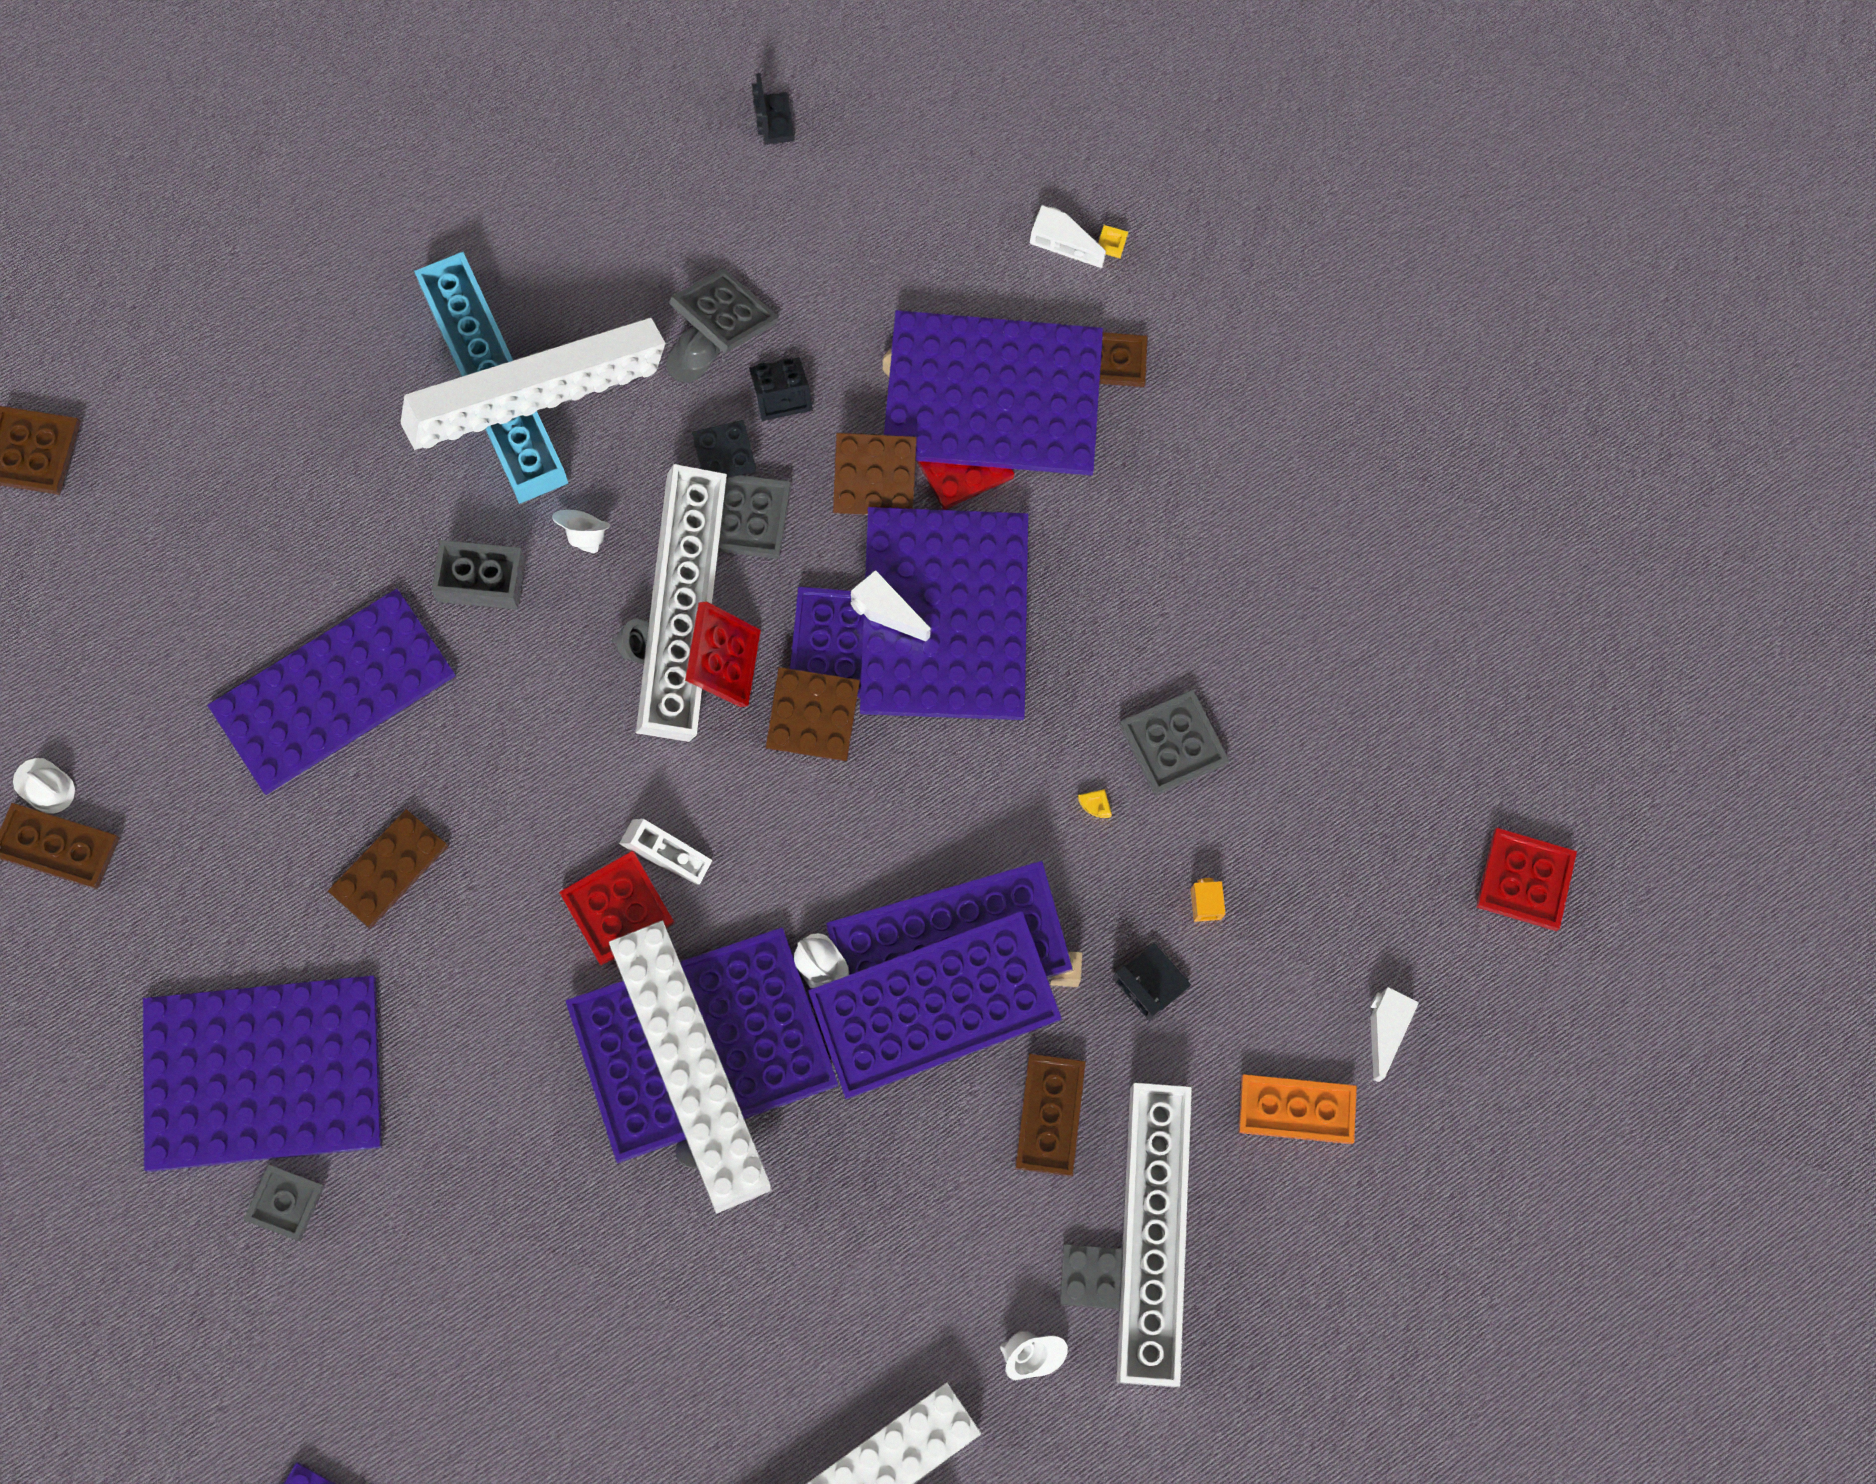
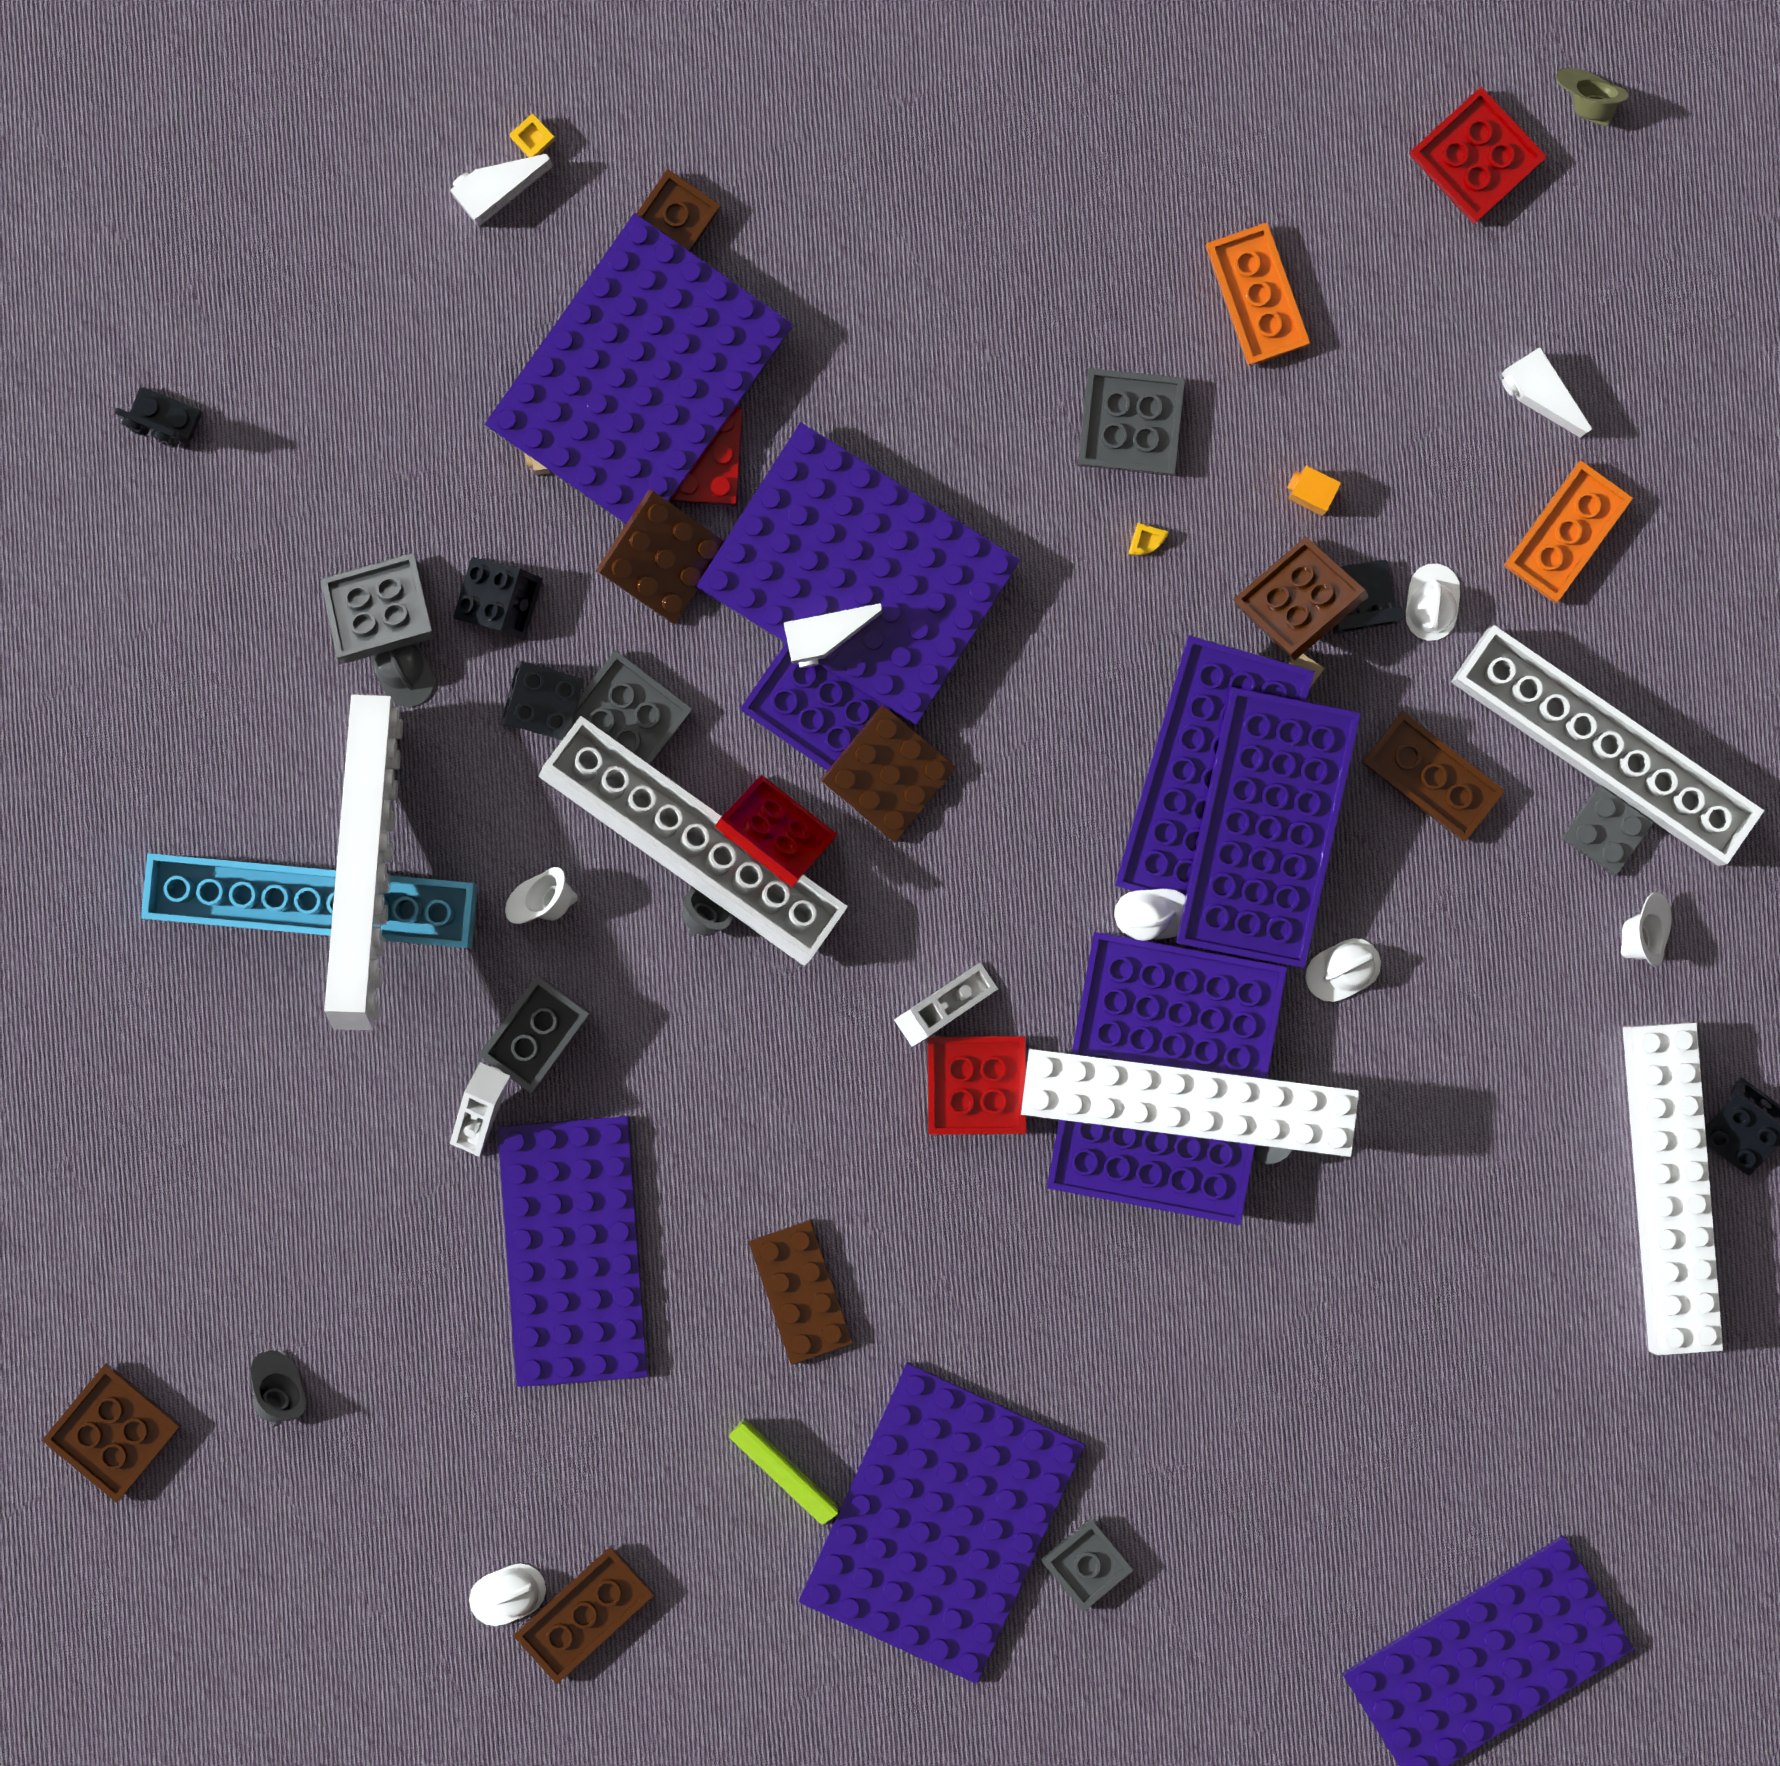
camera: 55 degrees left, 15 degrees up
(120, 539) = (276, 1388): none -> dark grey piece
(242, 932) = (784, 1472): none -> lime slope
(402, 562) = (479, 1108): none -> white slope
(862, 1134) = (1343, 970): none -> white piece
(1121, 933) = (1300, 598): none -> reddish brown plate
(1181, 1039) = (1432, 602): none -> white piece
(1322, 779) = (1257, 294): none -> orange plate
(1625, 935) = (1592, 96): none -> olive piece

